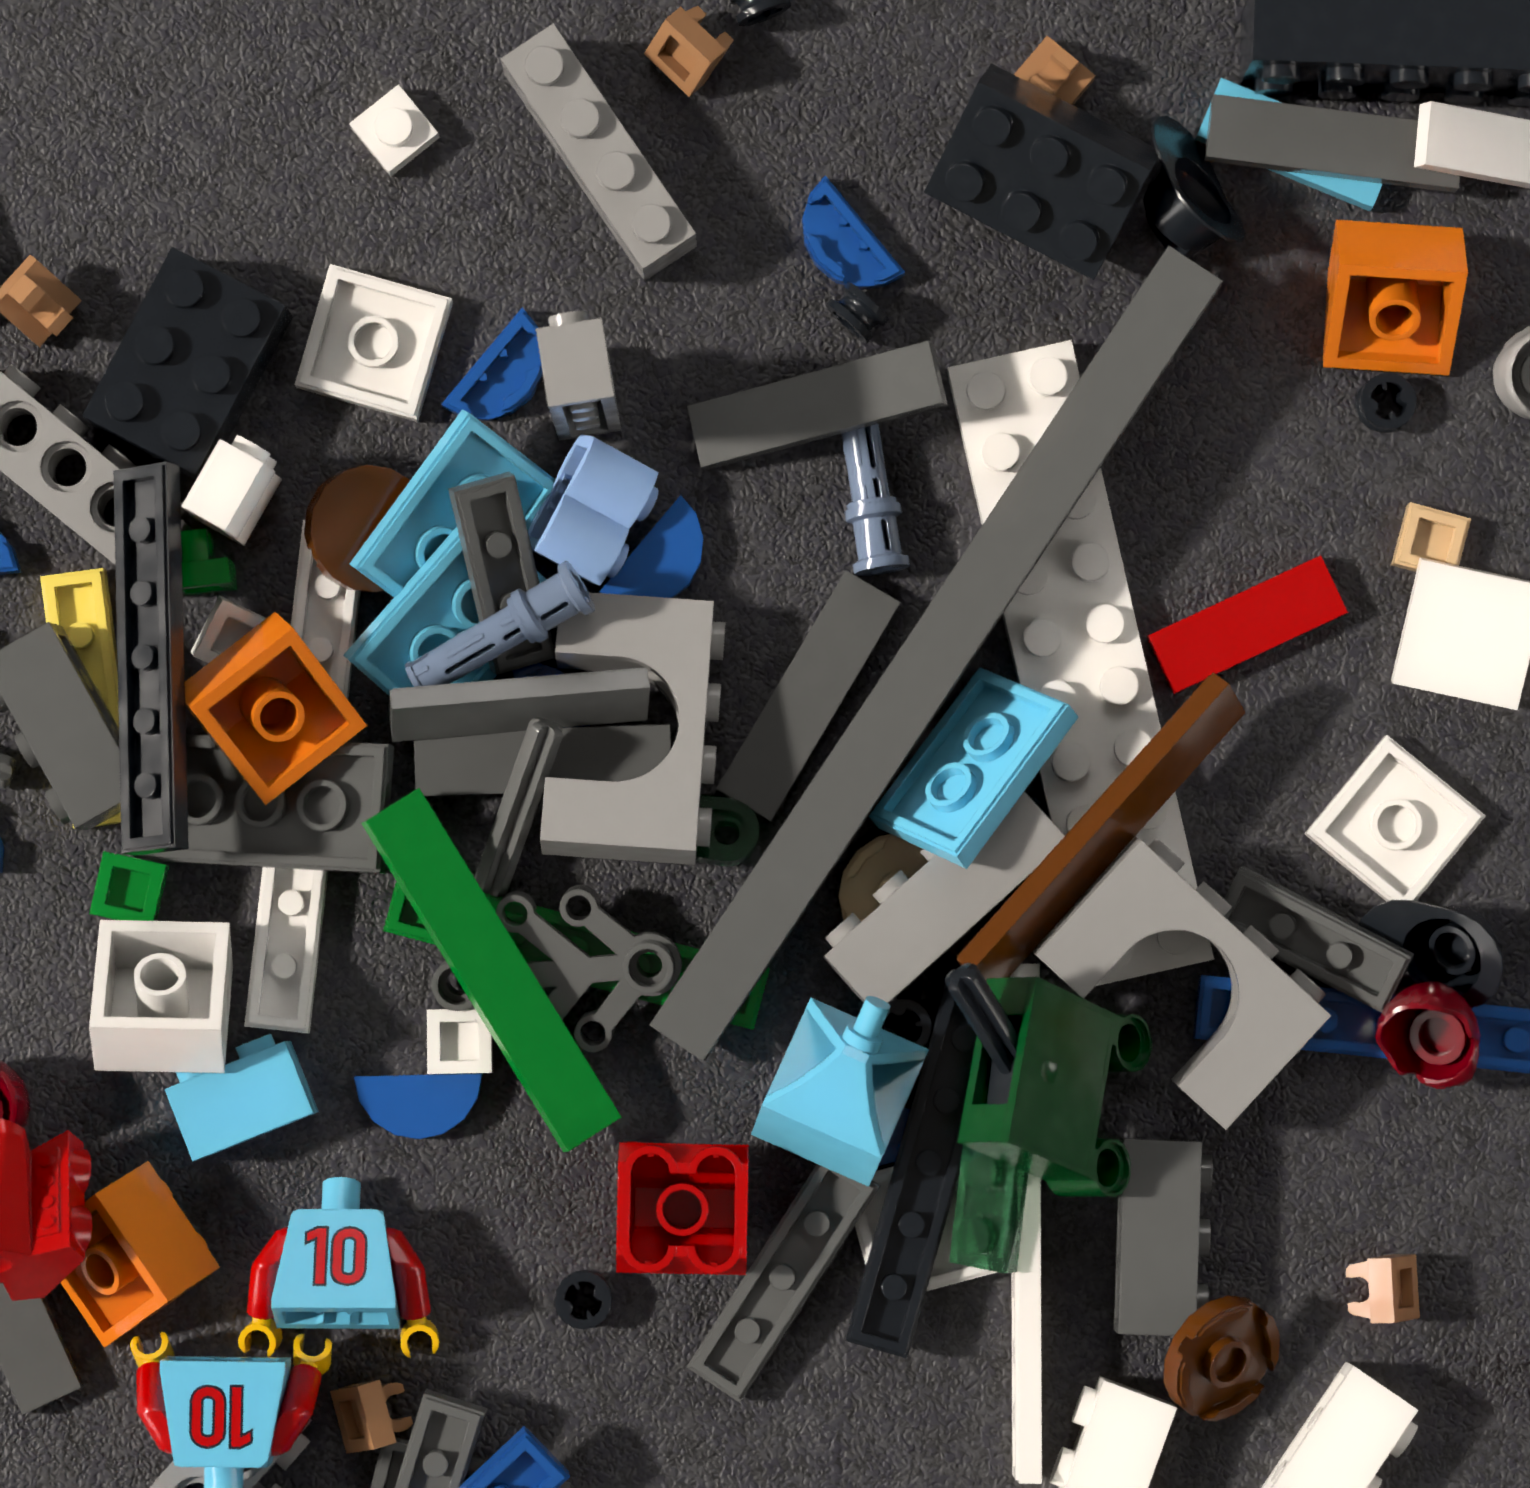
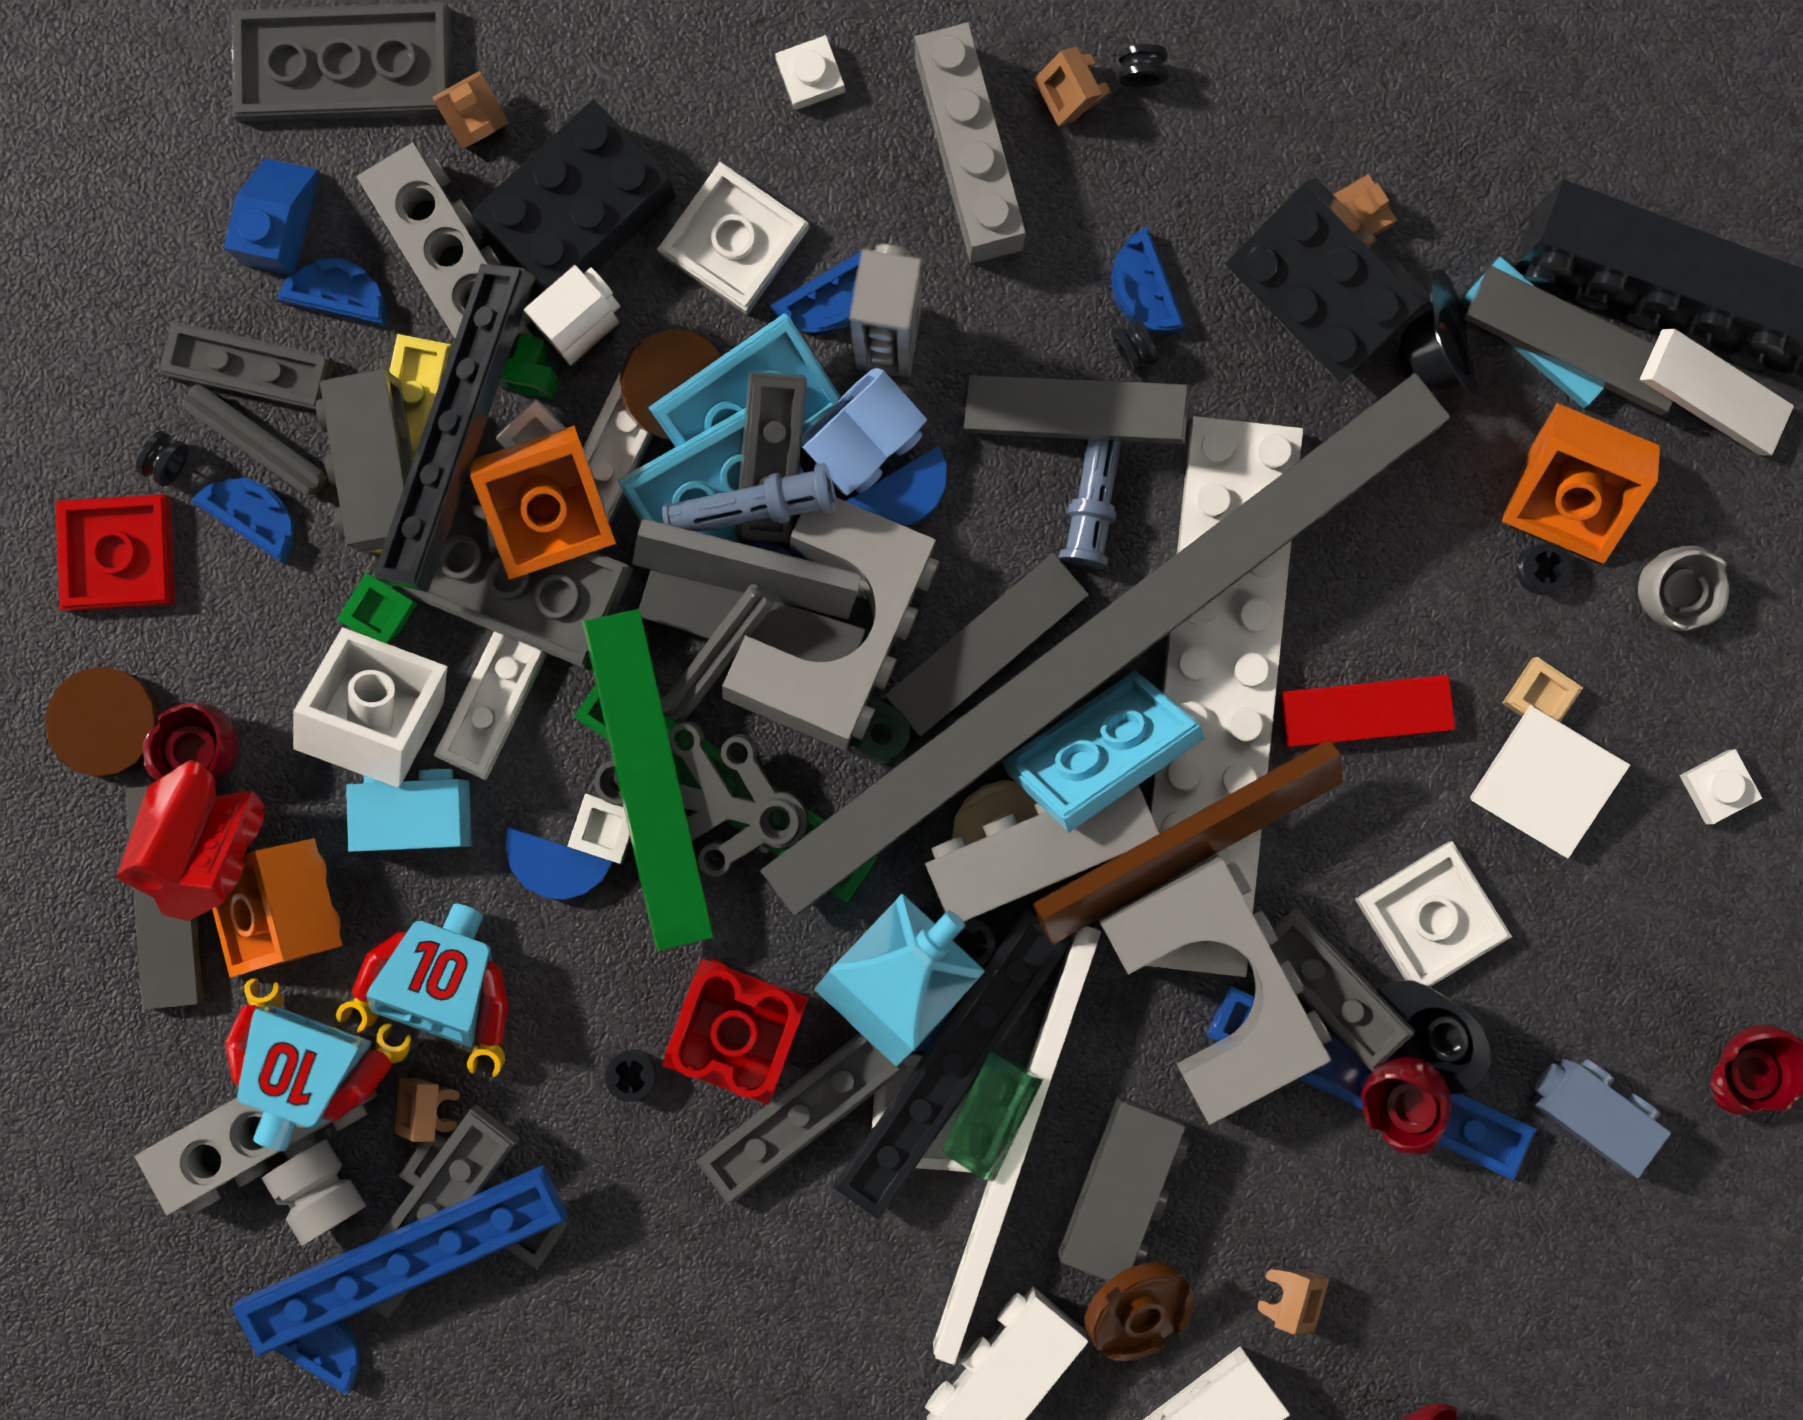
camera: 30 degrees right, 0 degrees up
(1044, 1078) = (1072, 1031): dark green piece -> none

